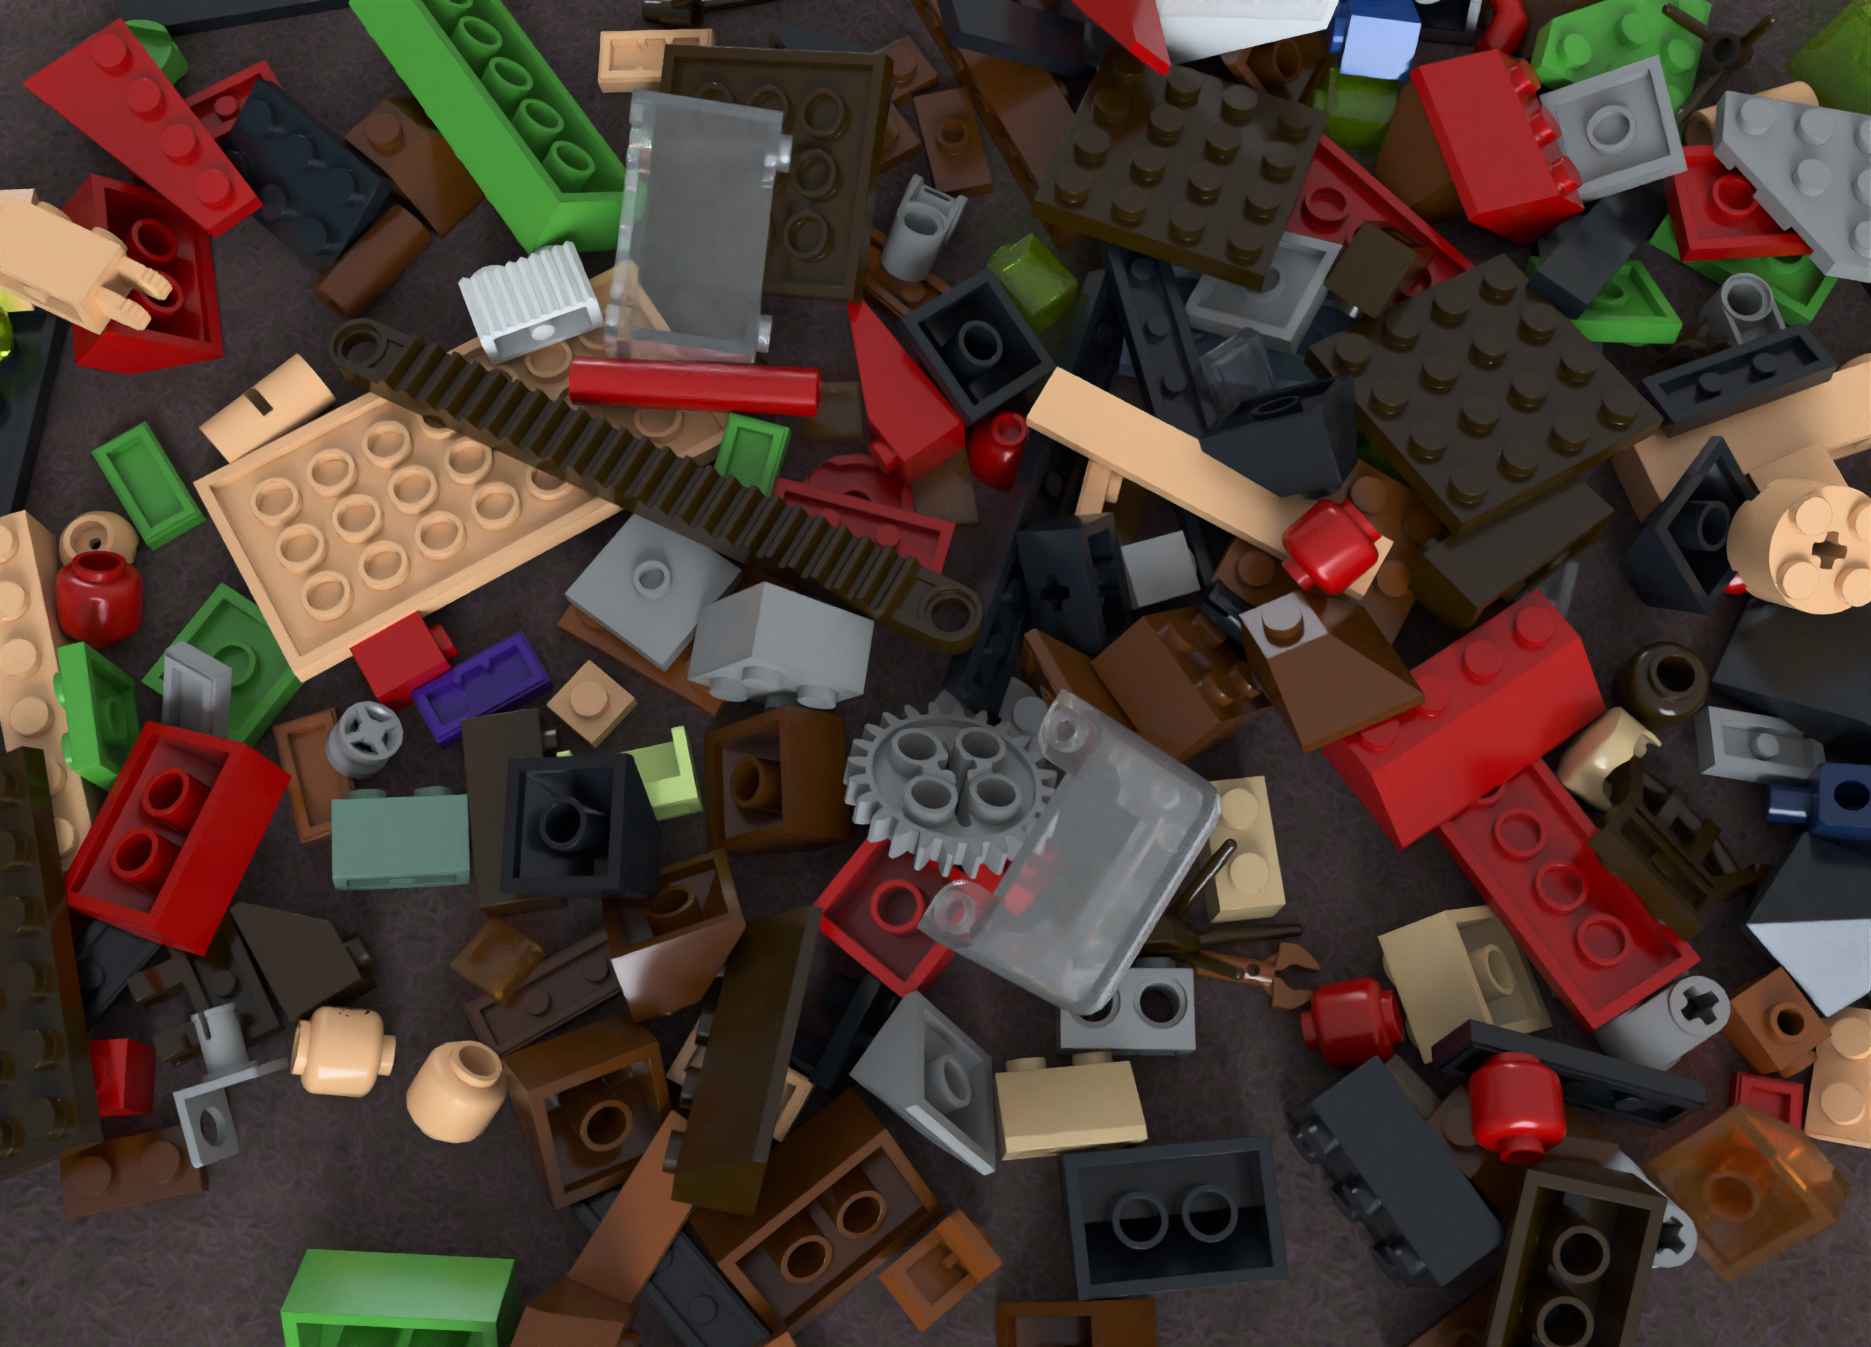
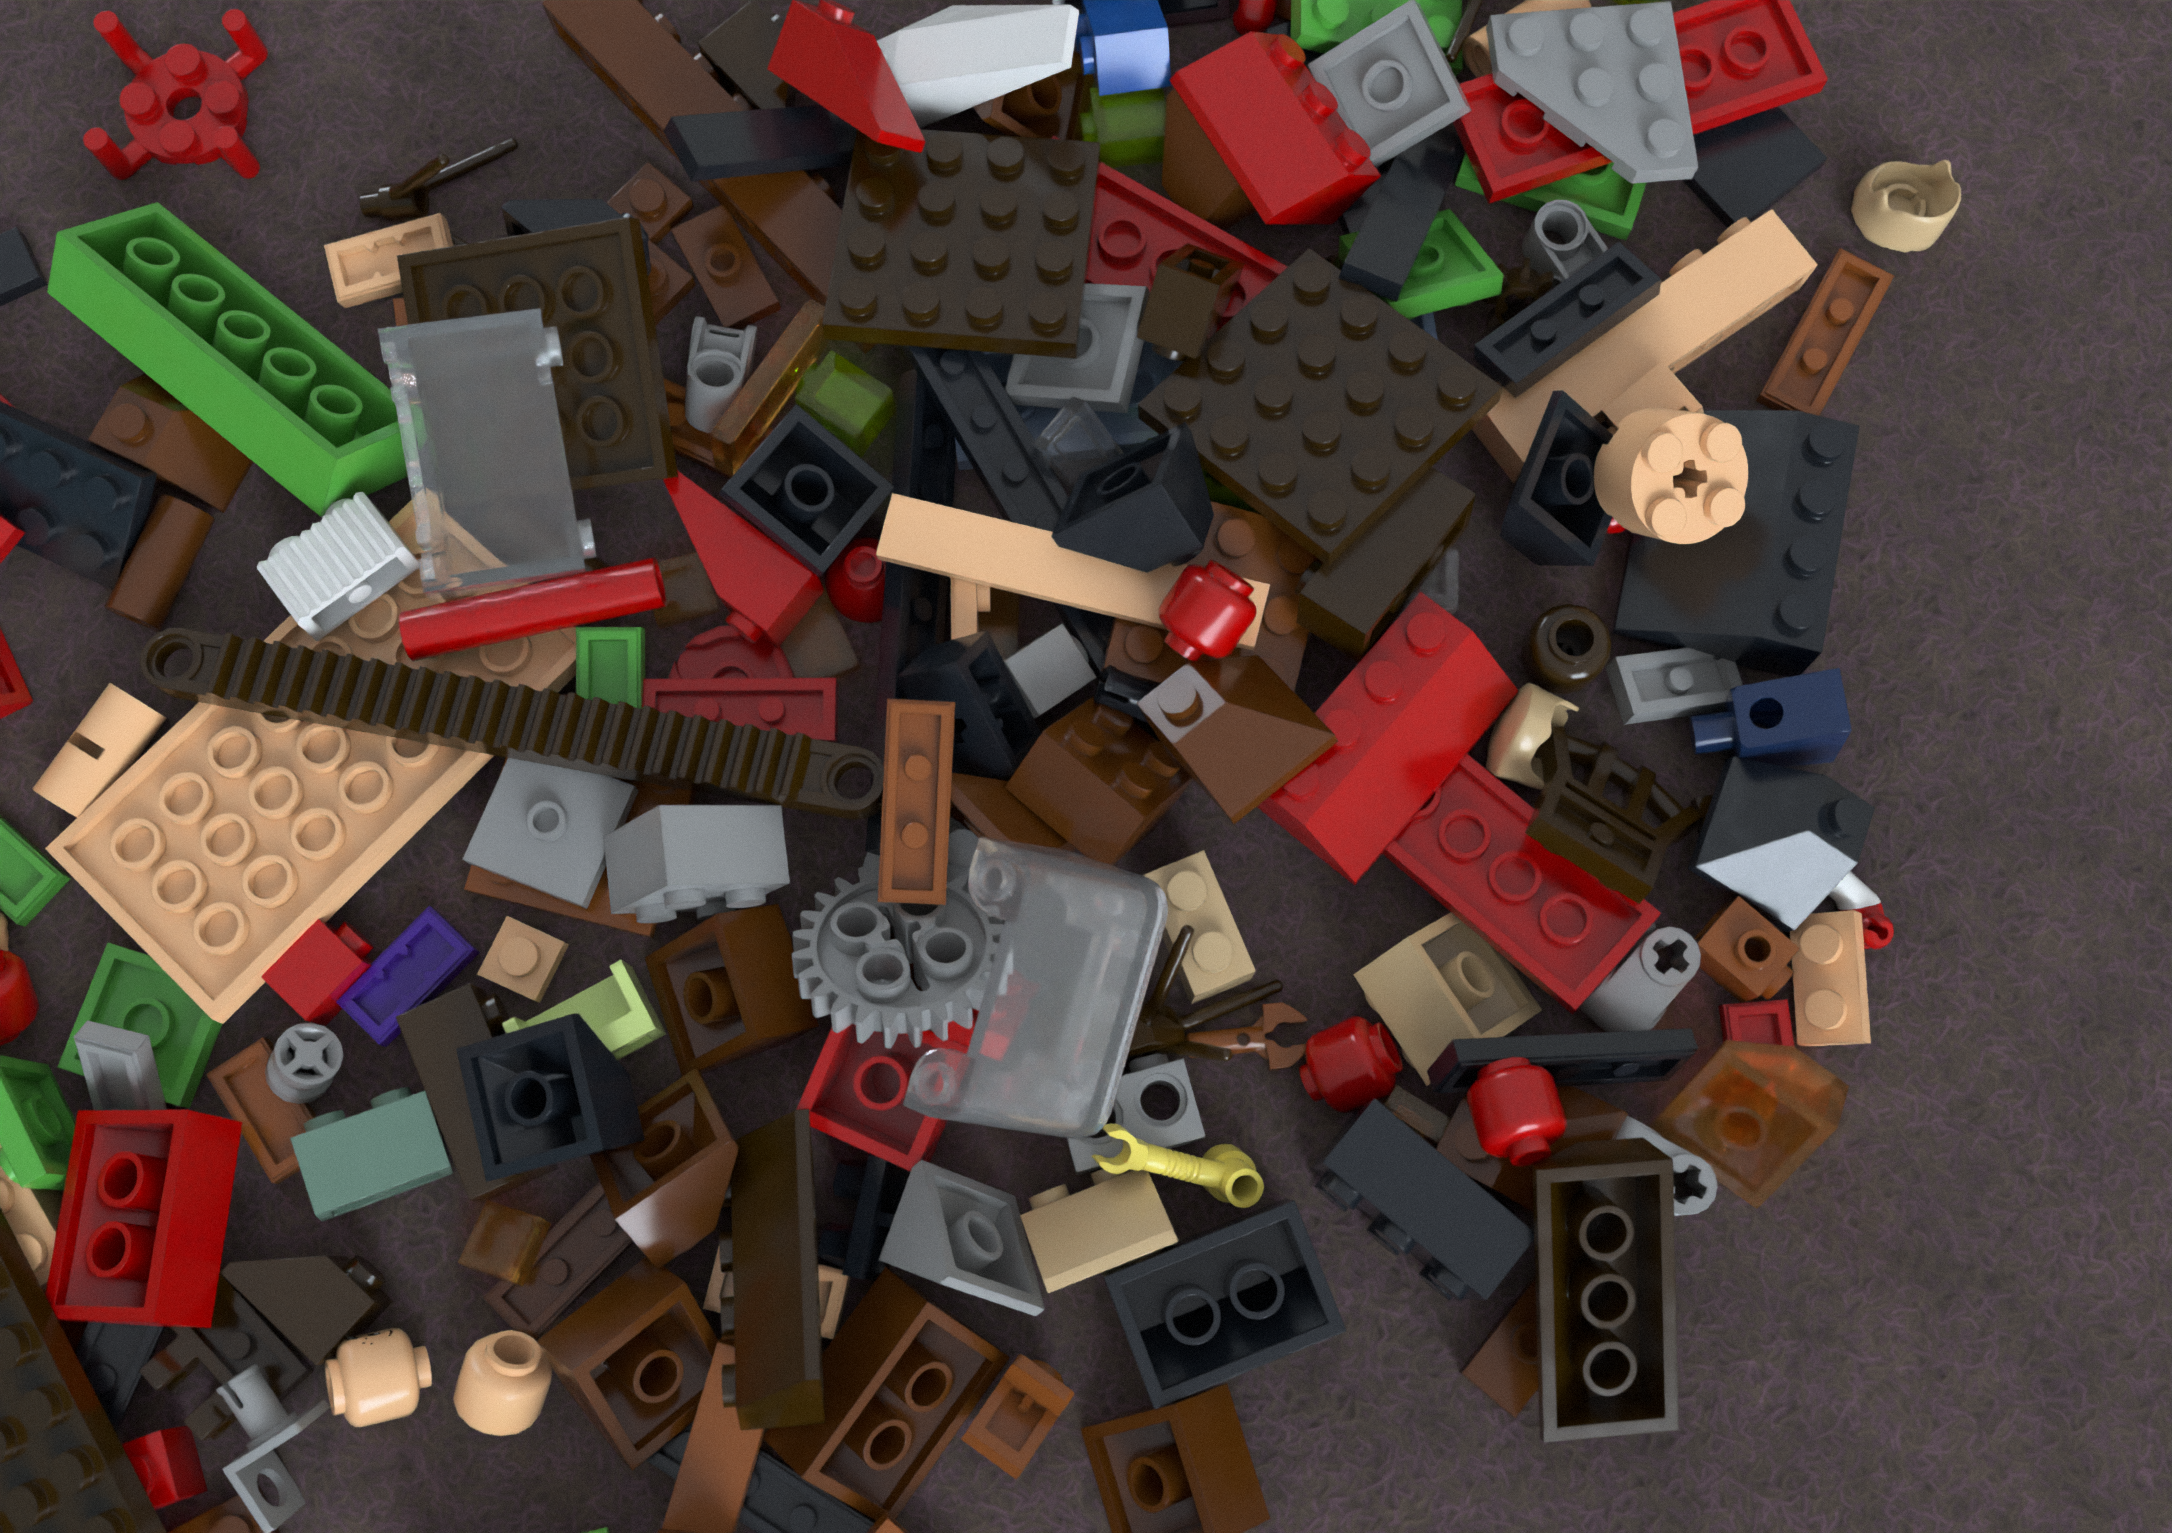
camera: 15 degrees left, 5 degrees up
(966, 251) = (768, 389): none -> clear orange tile
(1005, 648) = (916, 801): none -> dark orange tile
(1193, 1087) = (1213, 1171): none -> light yellow brick

